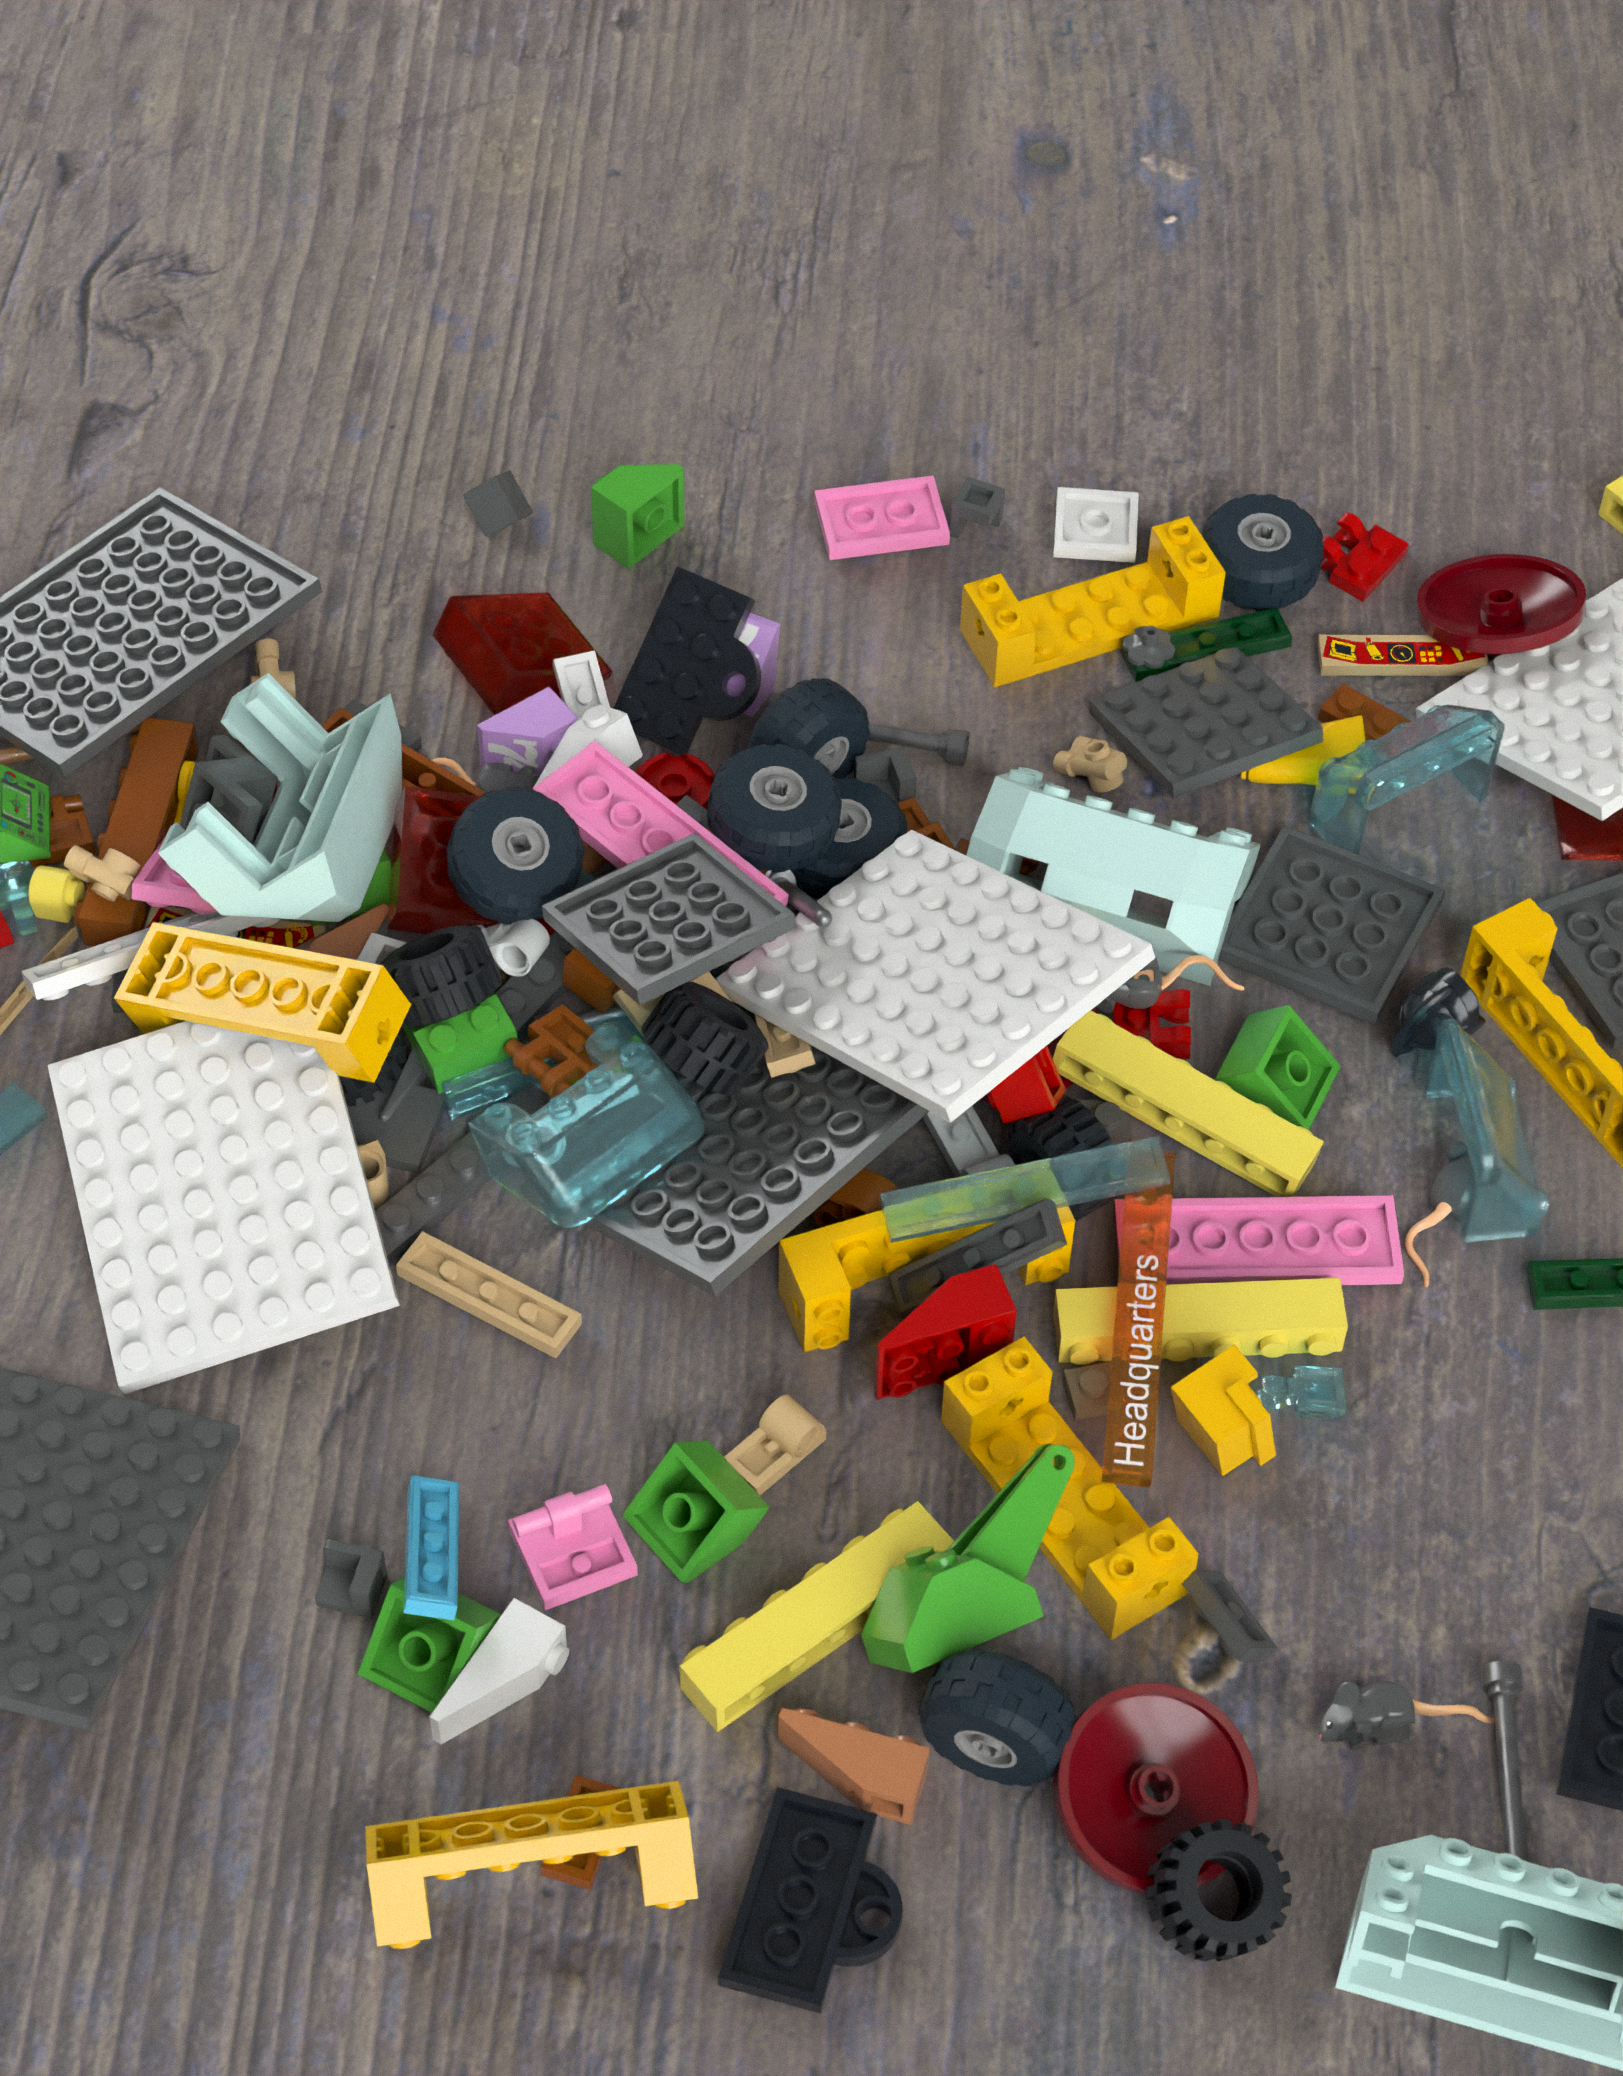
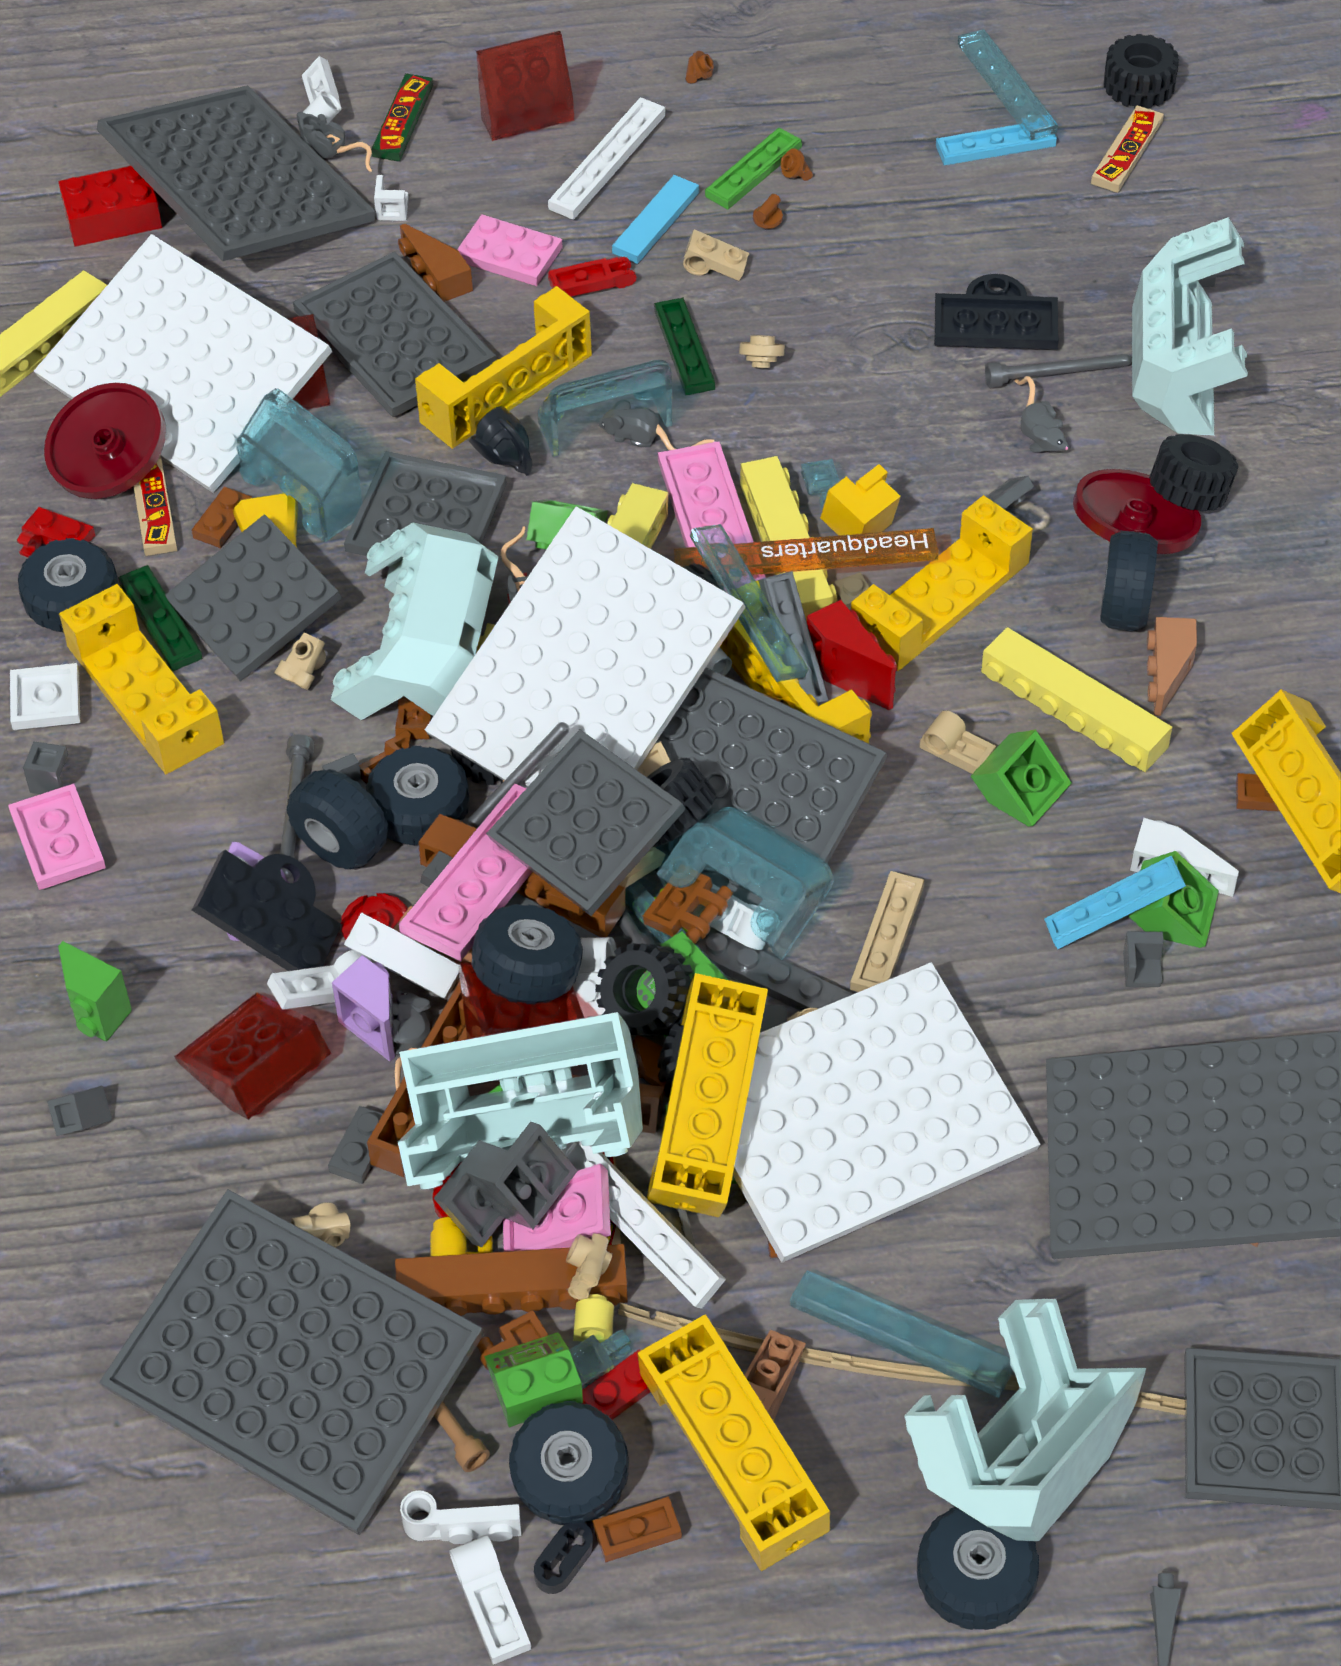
camera: 100 degrees left, 0 degrees up
(573, 1546) = (1071, 840): bright pink plate -> none
(775, 807) = (435, 802): black wheel -> none
(808, 1903) = (1259, 669): black plate -> none
(976, 1586) = (1058, 613): bright green slope -> none
(1149, 647) = (176, 644): dark grey plant -> none
(1588, 1365) = (761, 350): none -> tan plate

